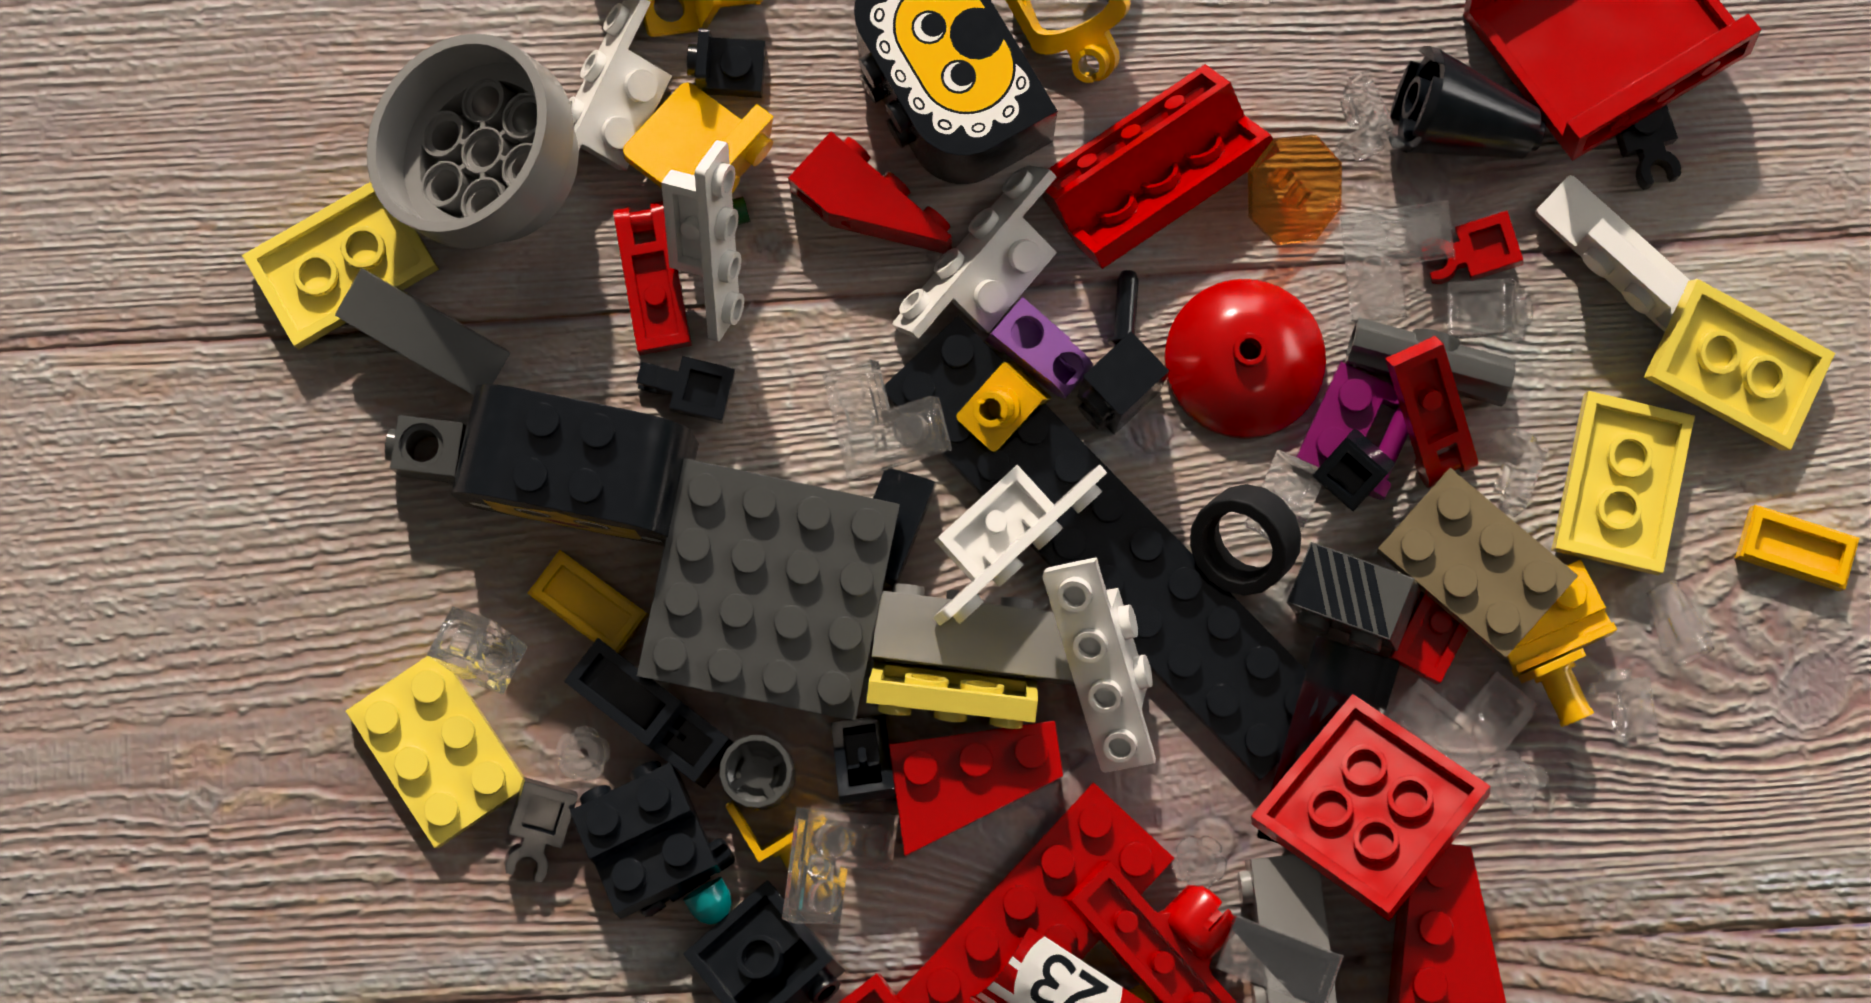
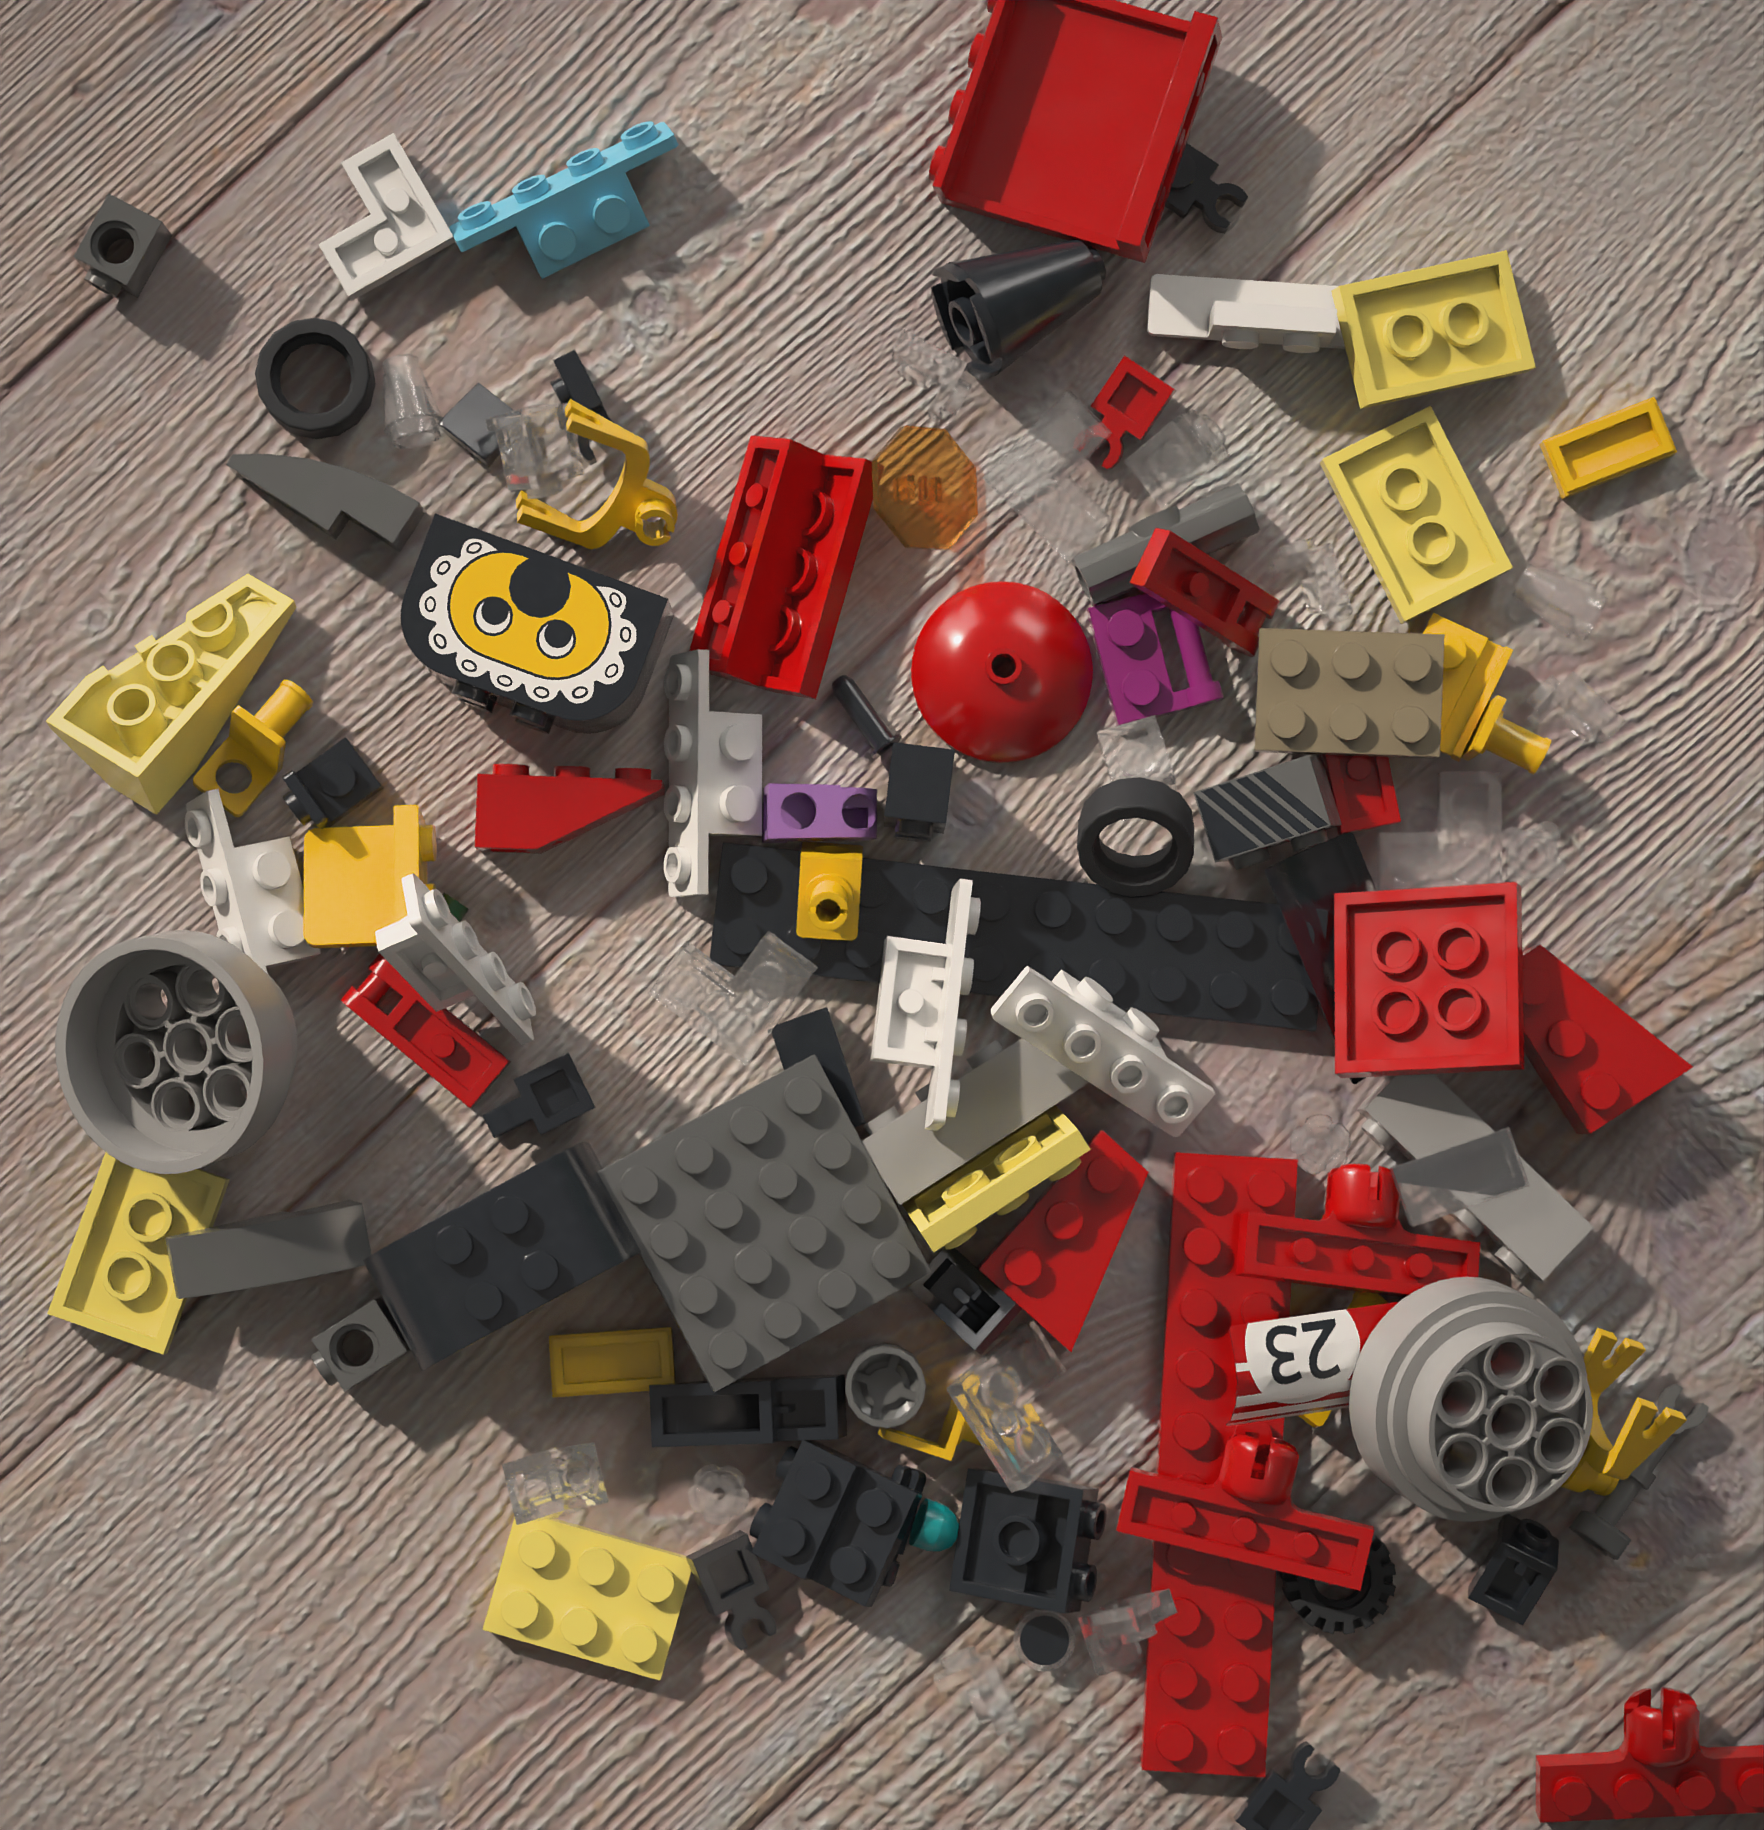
camera: 45 degrees left, 5 degrees up
(1354, 469) = (1178, 696): black slope -> none

